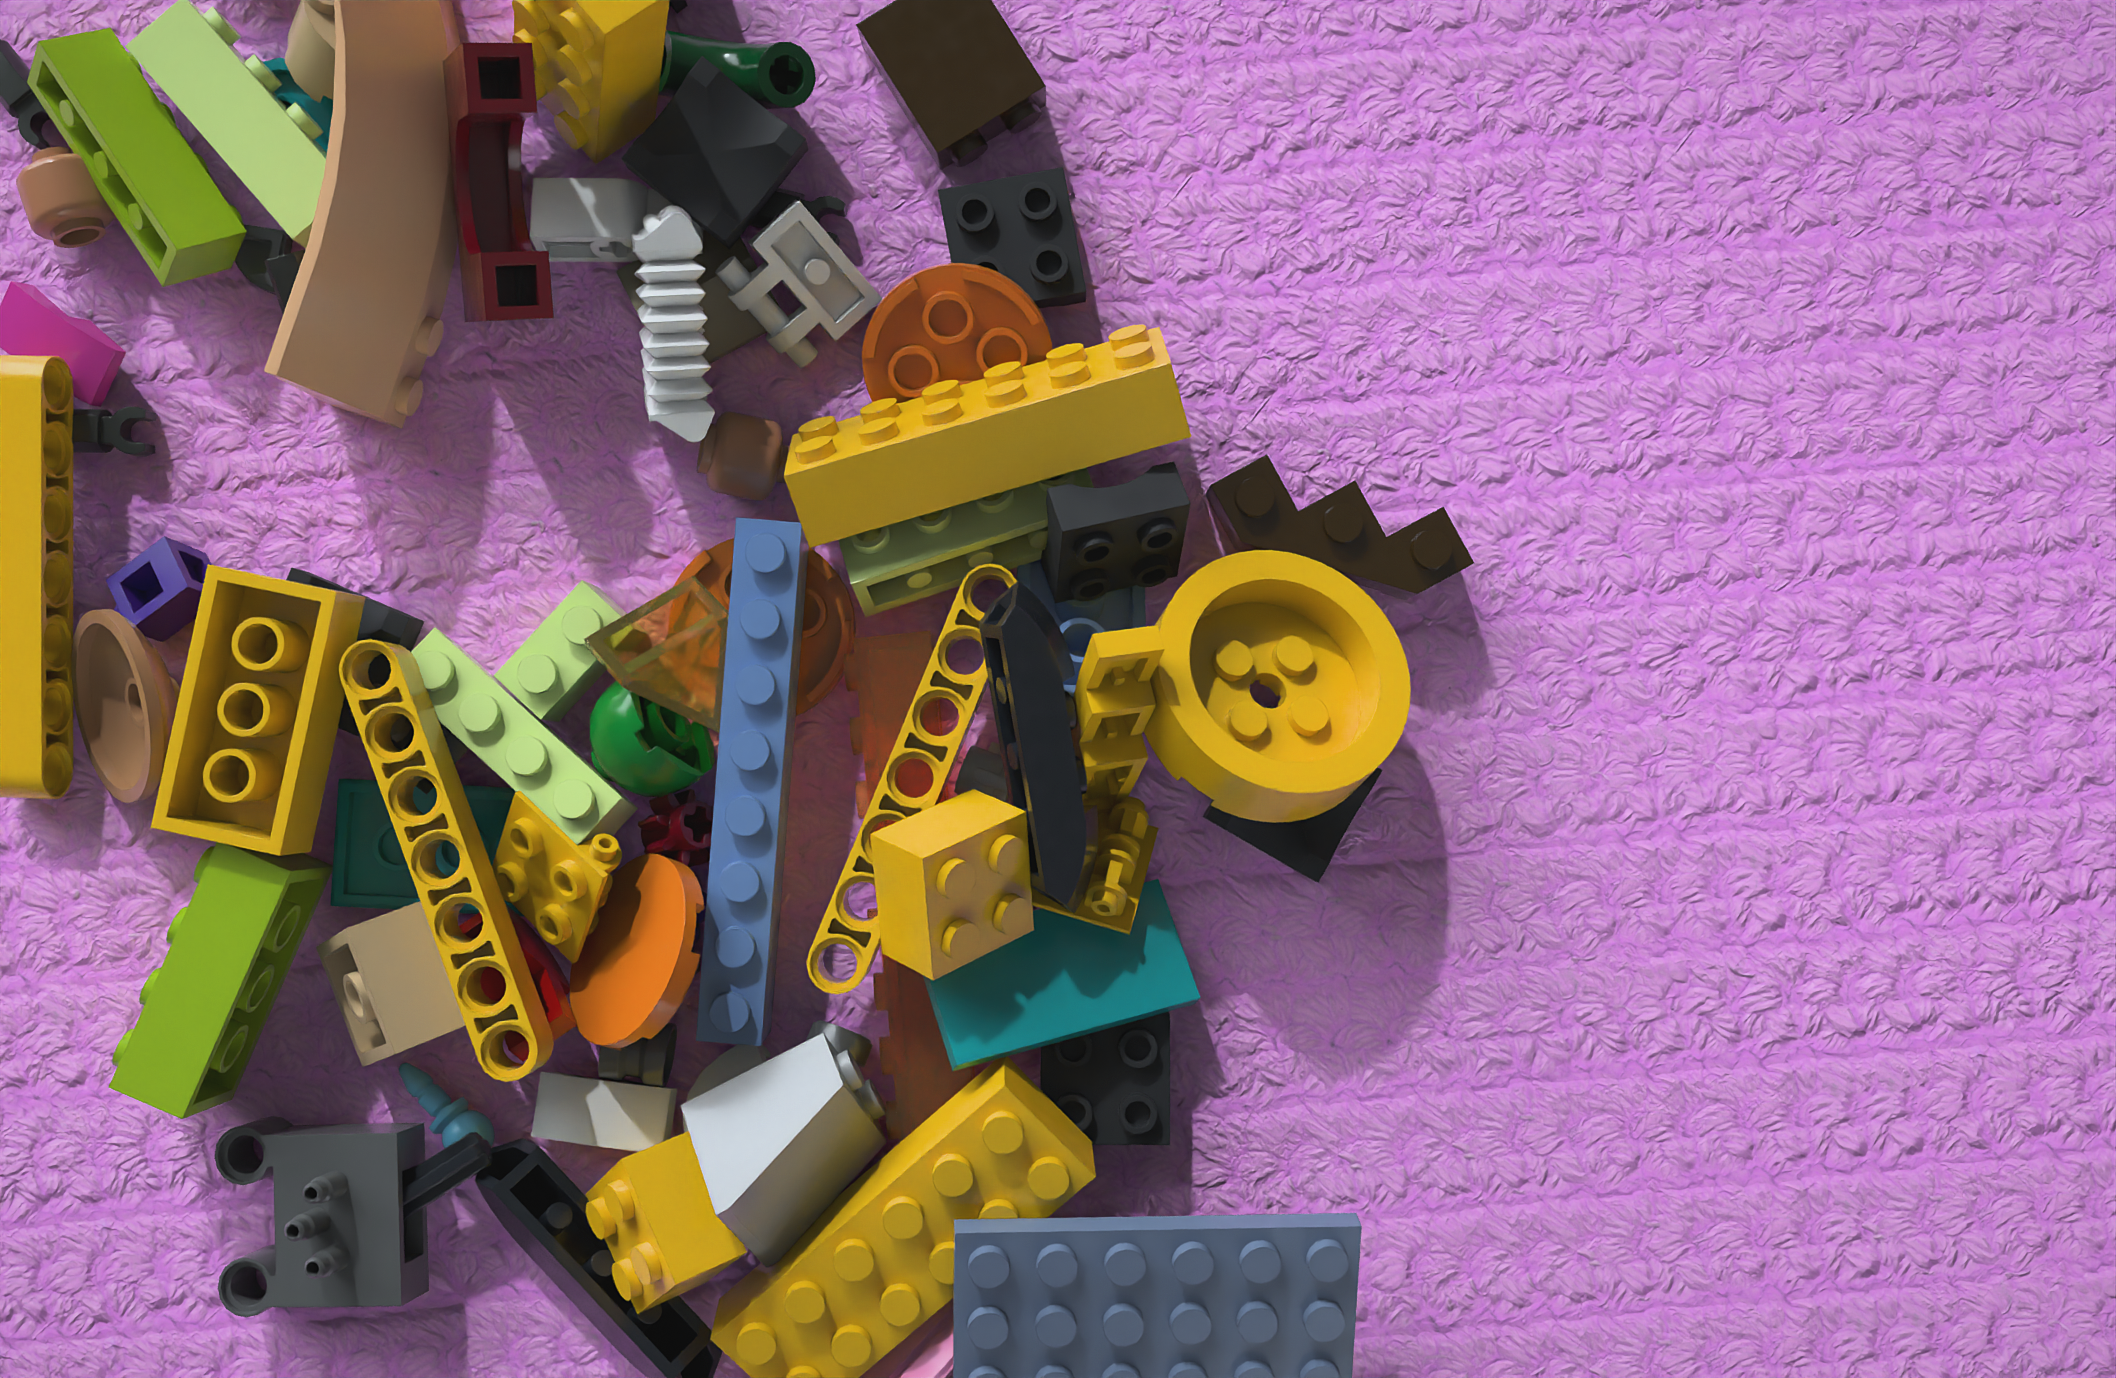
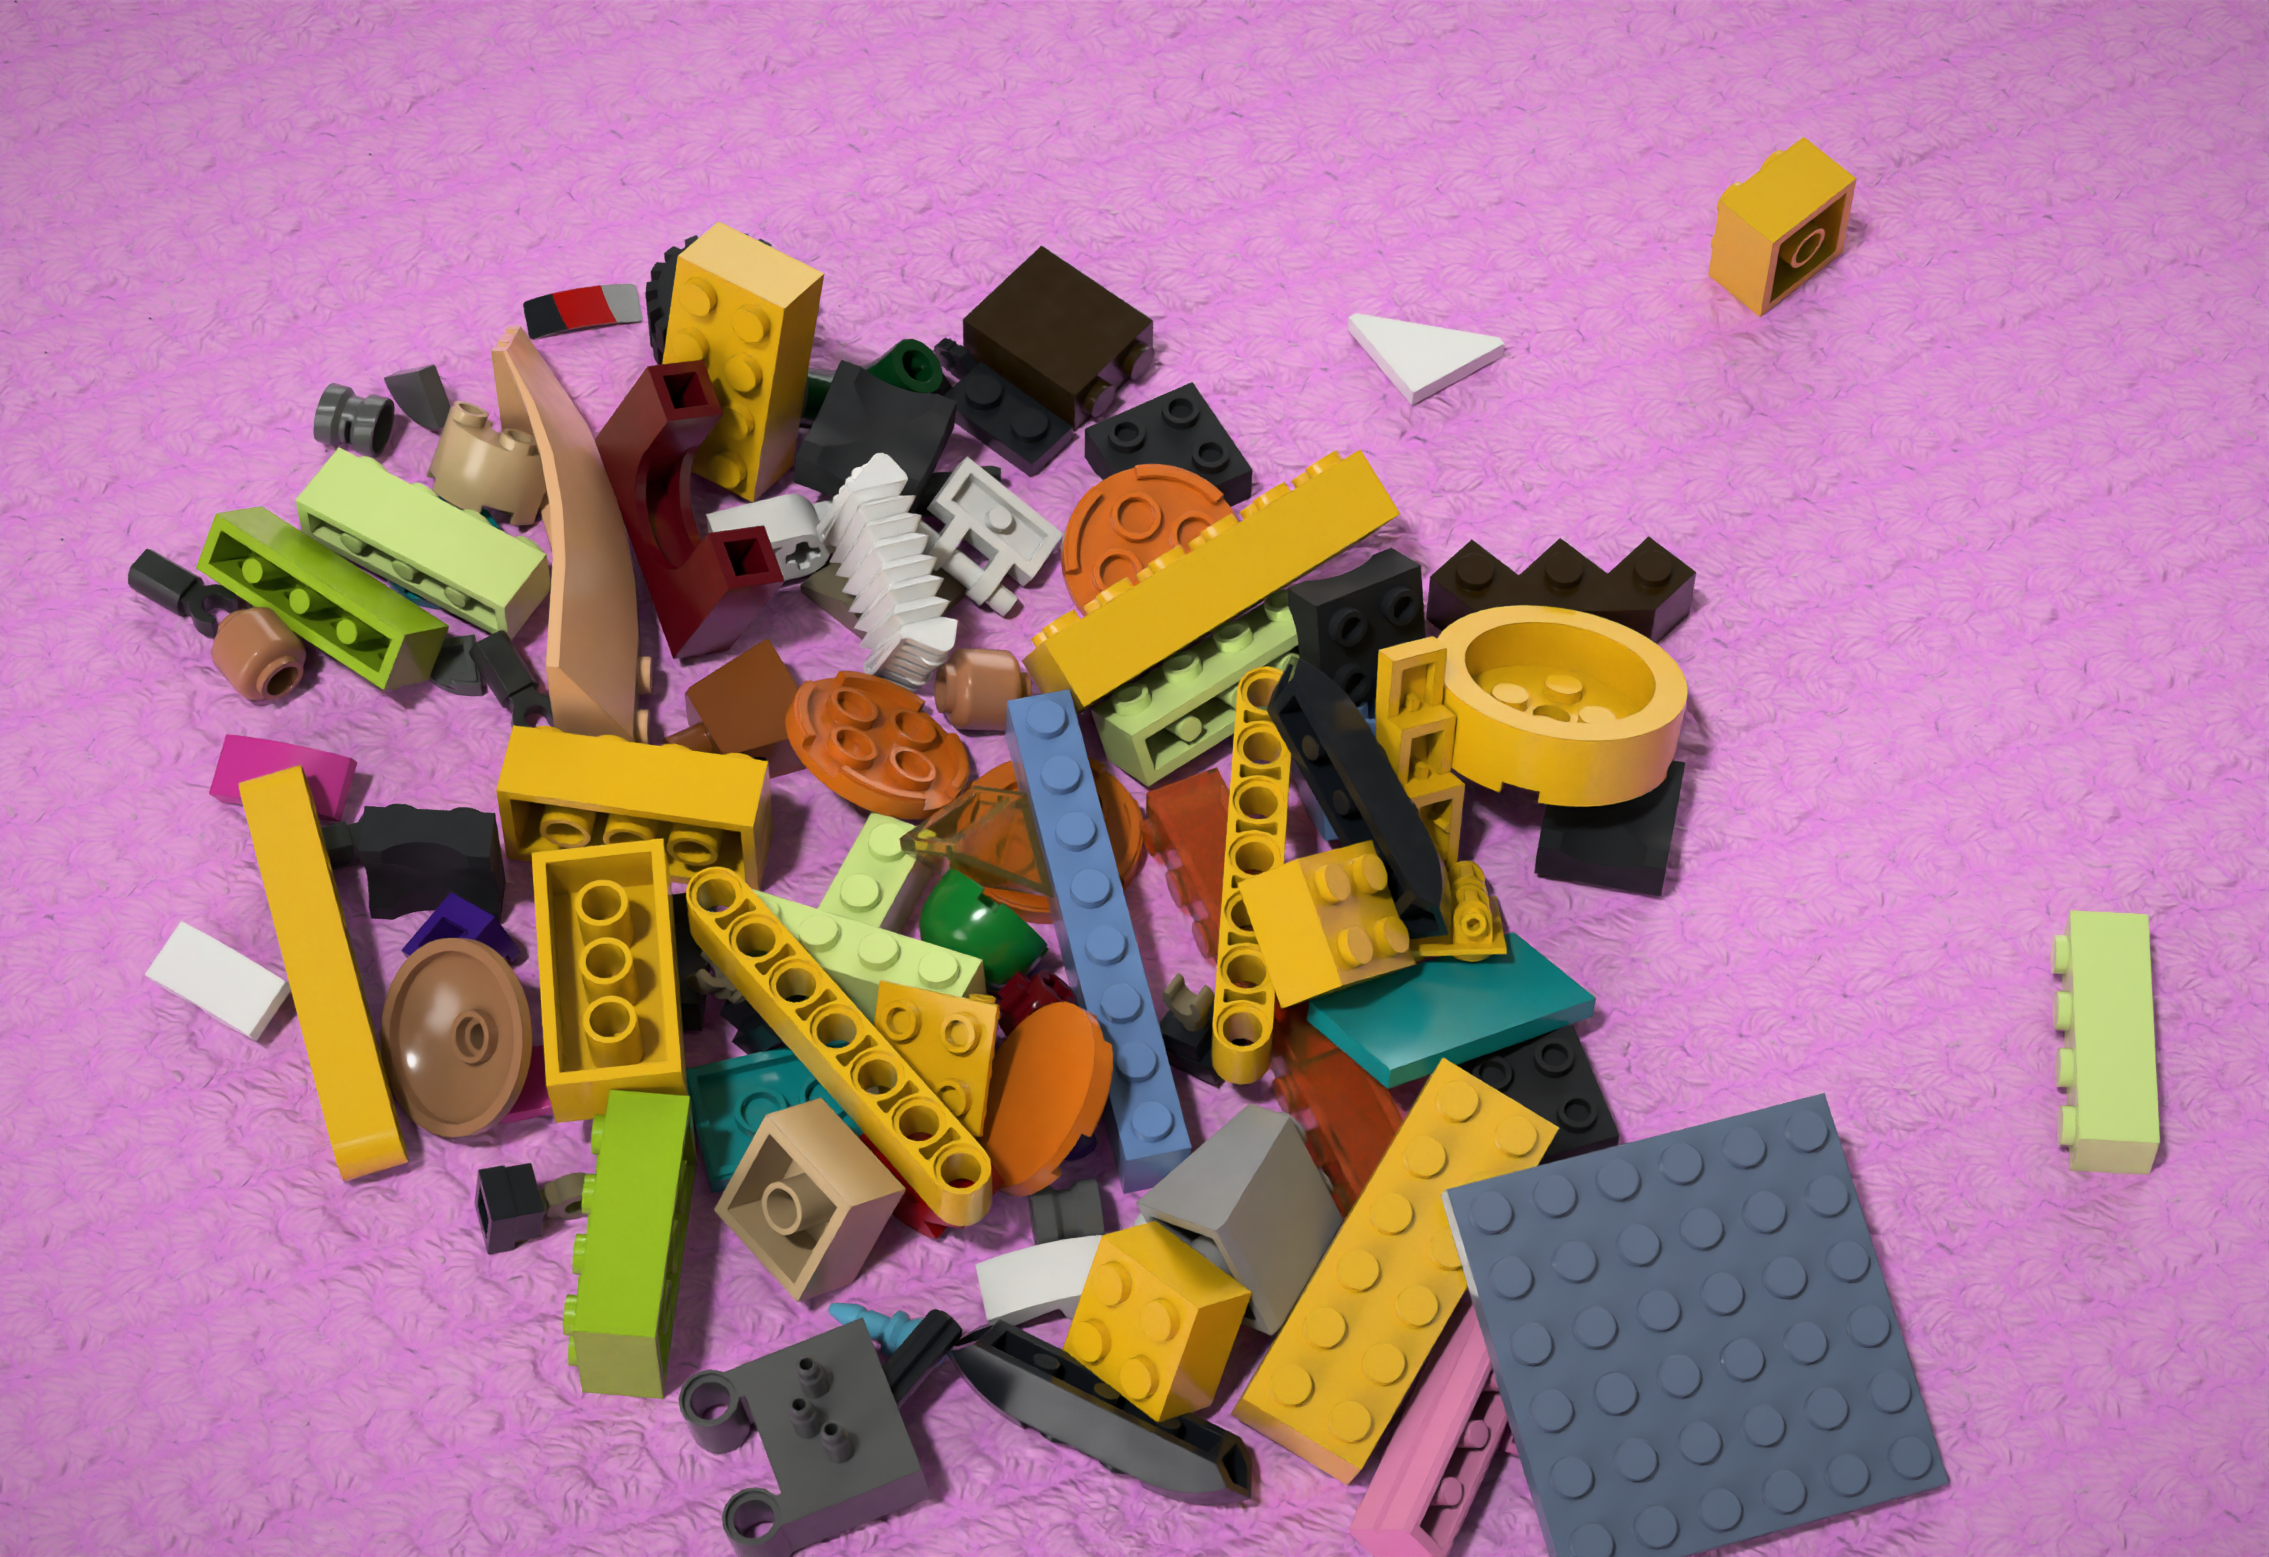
camera: 20 degrees left, 30 degrees down
(141, 878) = (514, 1207): none -> black piece
(168, 501) = (426, 854): none -> black brick
(350, 495) = (604, 790): none -> yellow brick
(509, 419) = (743, 711): none -> dark orange torso
(613, 500) = (876, 745): none -> orange tile
(810, 892) = (1188, 1029): none -> black piece
(870, 129) = (1000, 411): none -> black hinge
(1309, 194) = (1421, 356): none -> white tile
(1667, 1183) = (2107, 1042): none -> yellowish green brick
(1722, 167) = (1781, 225): none -> yellow brick

